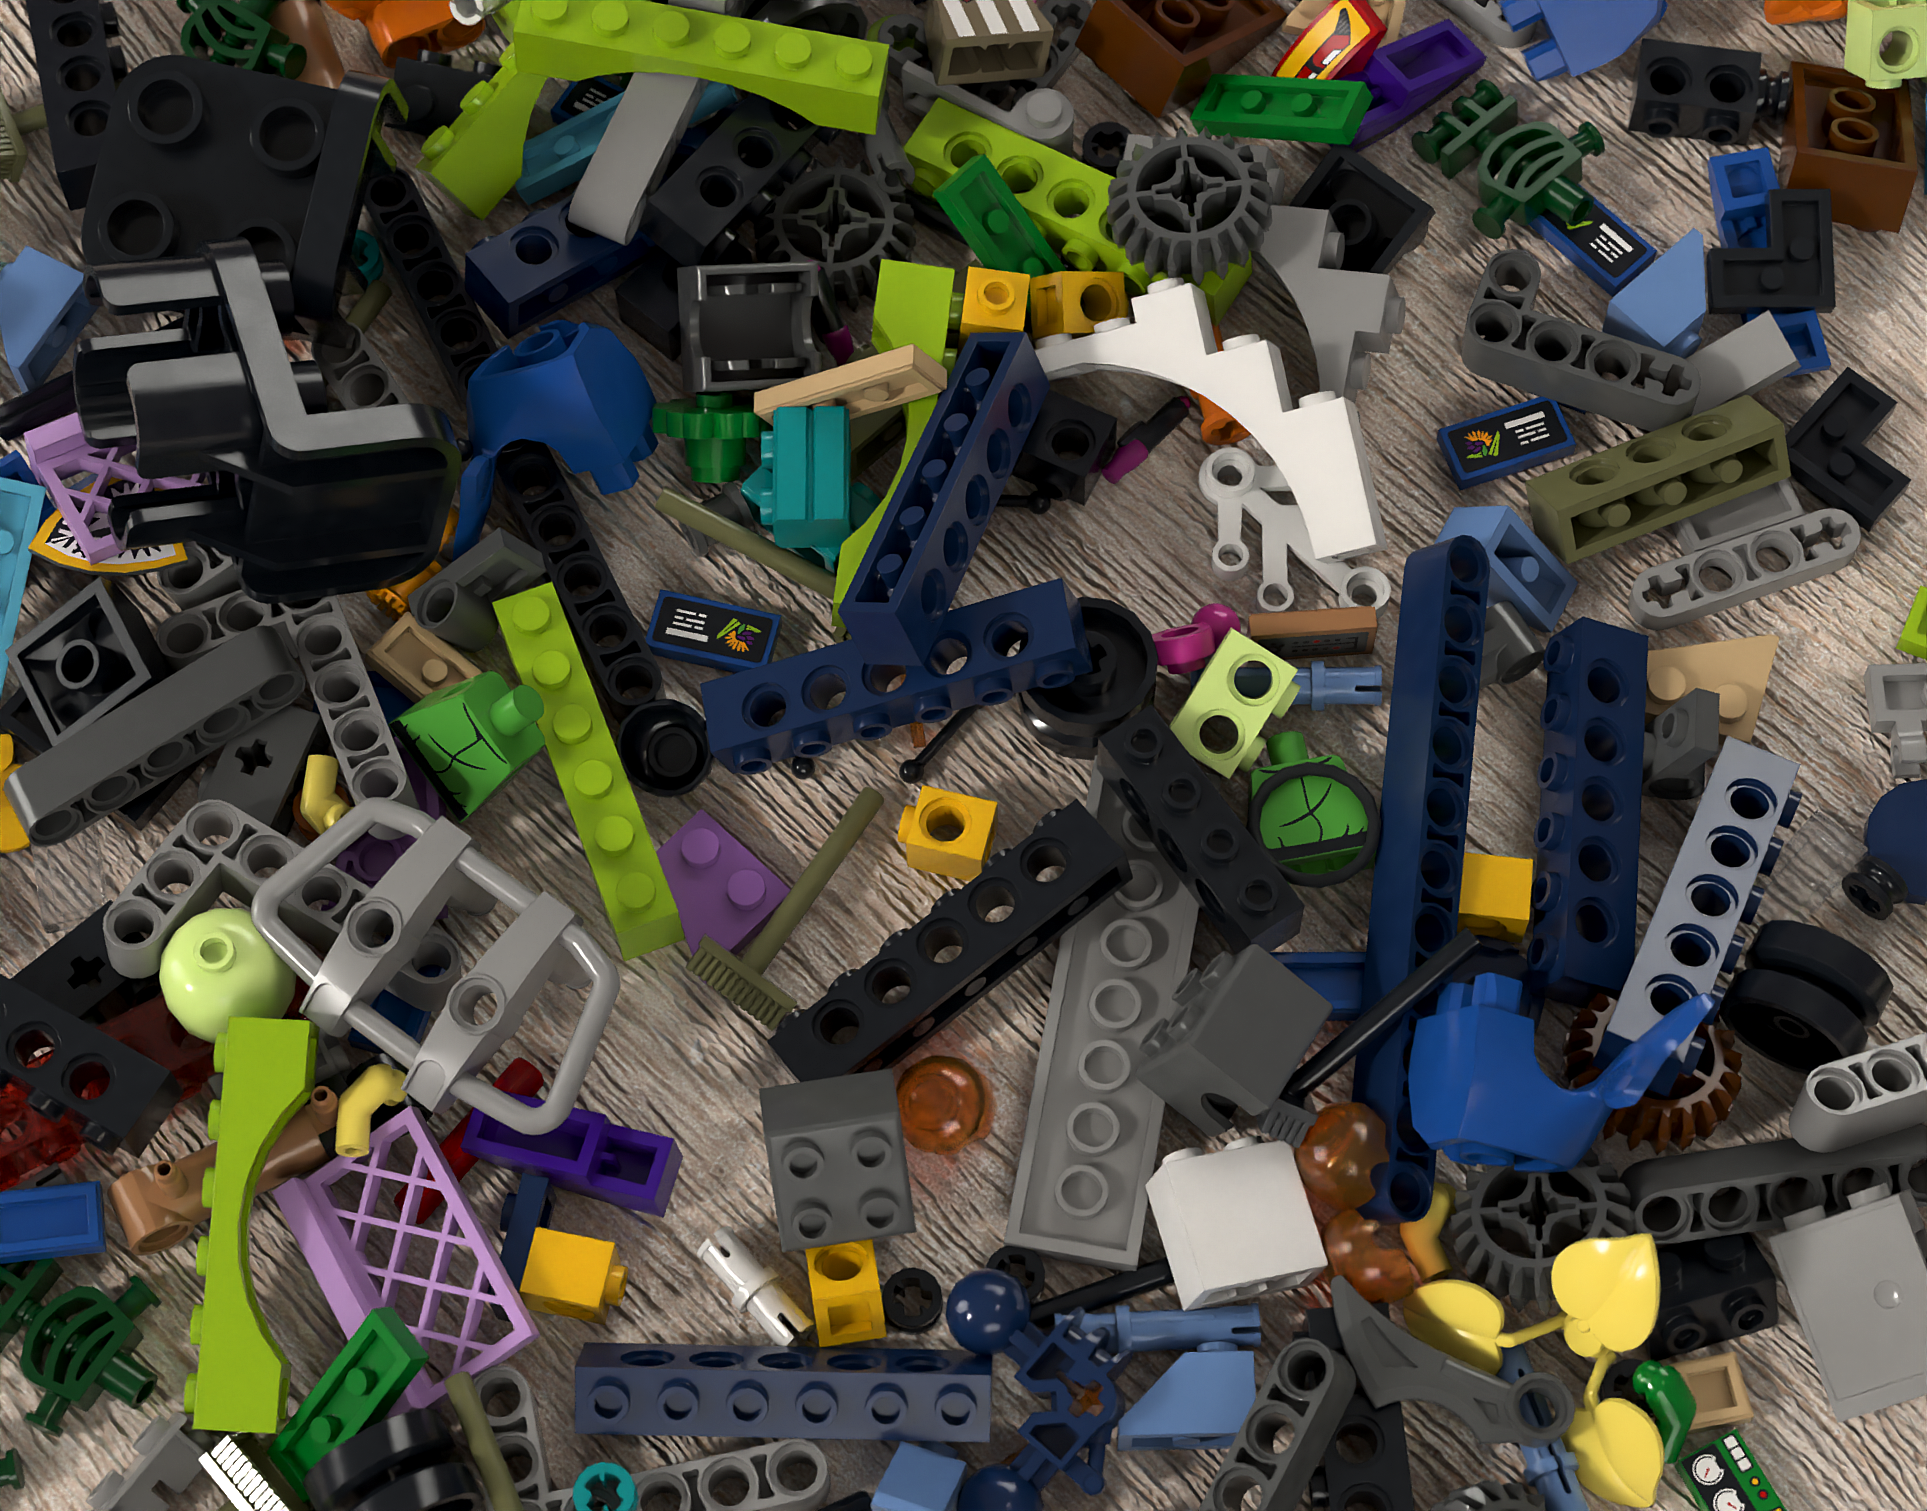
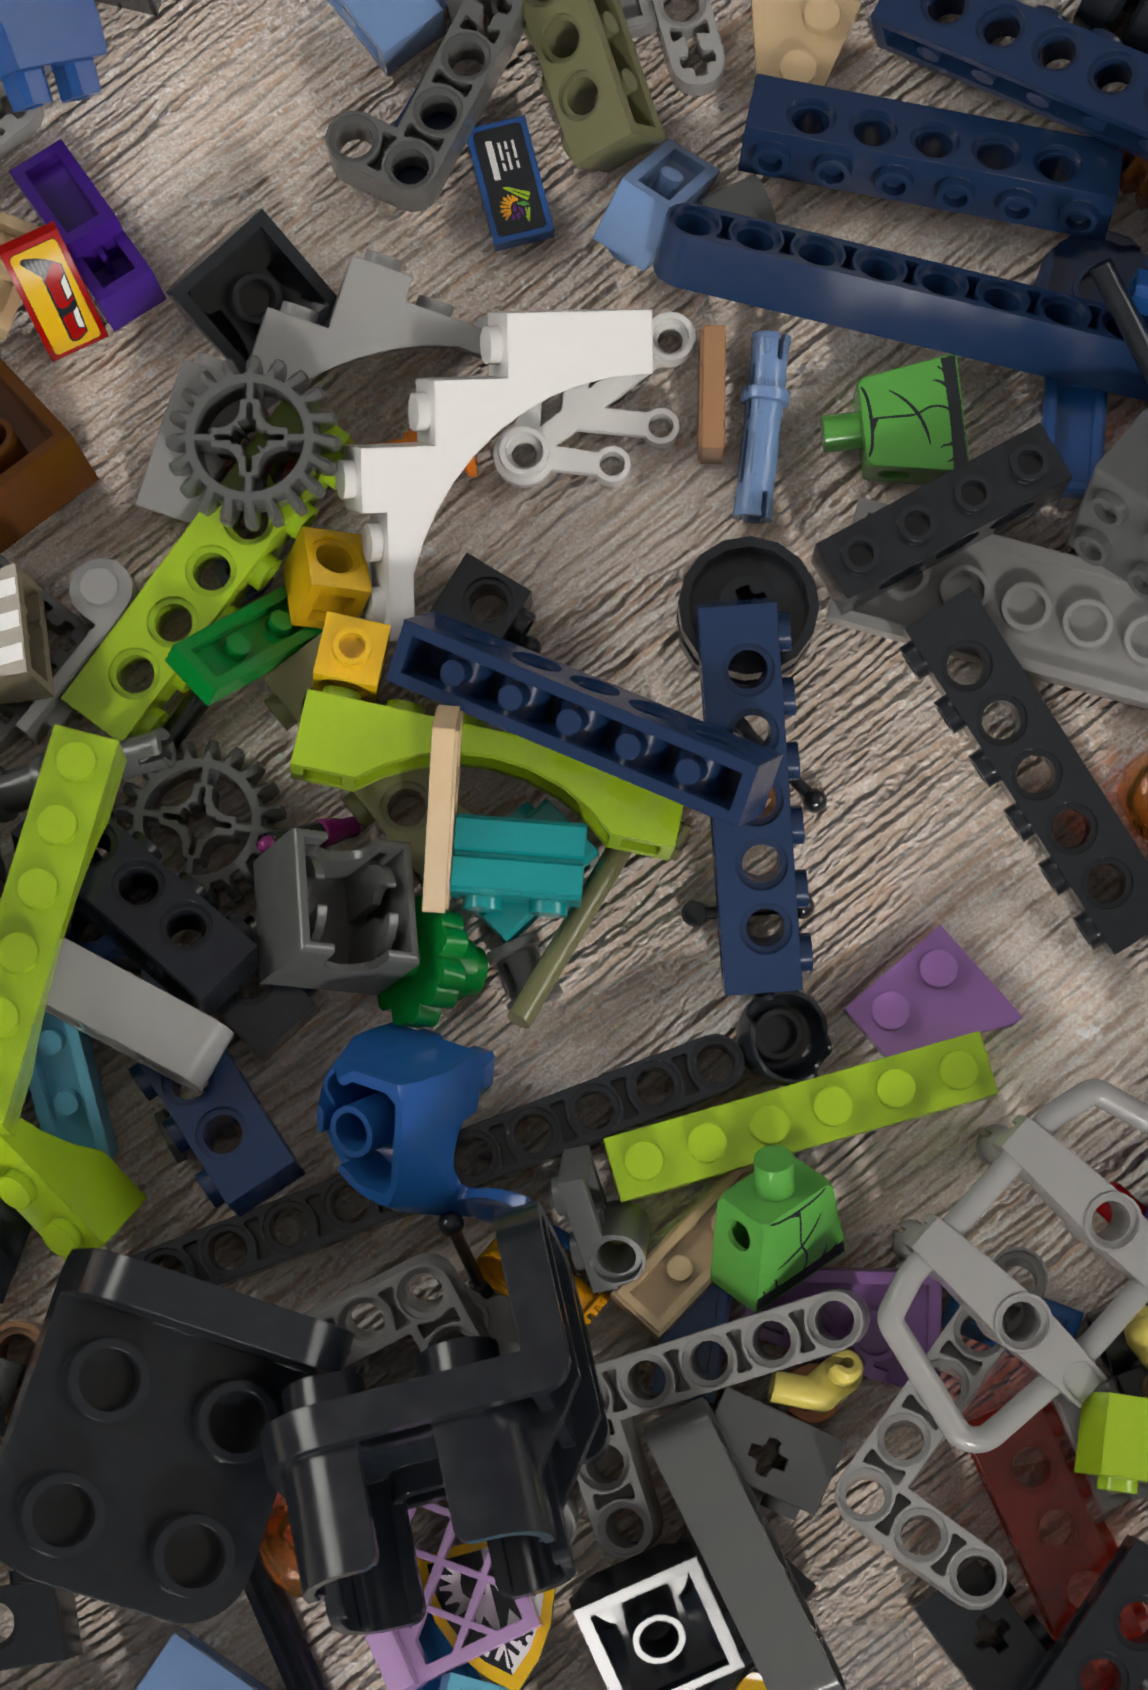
camera: 85 degrees left, 15 degrees up
(223, 969) = (1020, 1491): yellowish green cylinder -> none
(712, 633) = (647, 985): tile -> none
(743, 978) = (1036, 975): olive piece -> none
(957, 858) = (901, 738): yellow brick -> none
(1106, 136) = (146, 535): black bush -> none
(1144, 437) = (471, 538): piece -> none
(1187, 645) = (718, 510): dark pink plate -> none
(1217, 695) = (787, 487): yellowish green brick -> none
(1282, 108) = (117, 346): green plate -> none
(1341, 777) = (924, 355): black piece -> none
(1495, 896) = (1007, 248): yellow brick -> none
(1534, 160) = (240, 91): dark green piece -> none
(1598, 246) = (284, 68): tile -> none
(1679, 746) = (877, 53): dark grey plate -> none

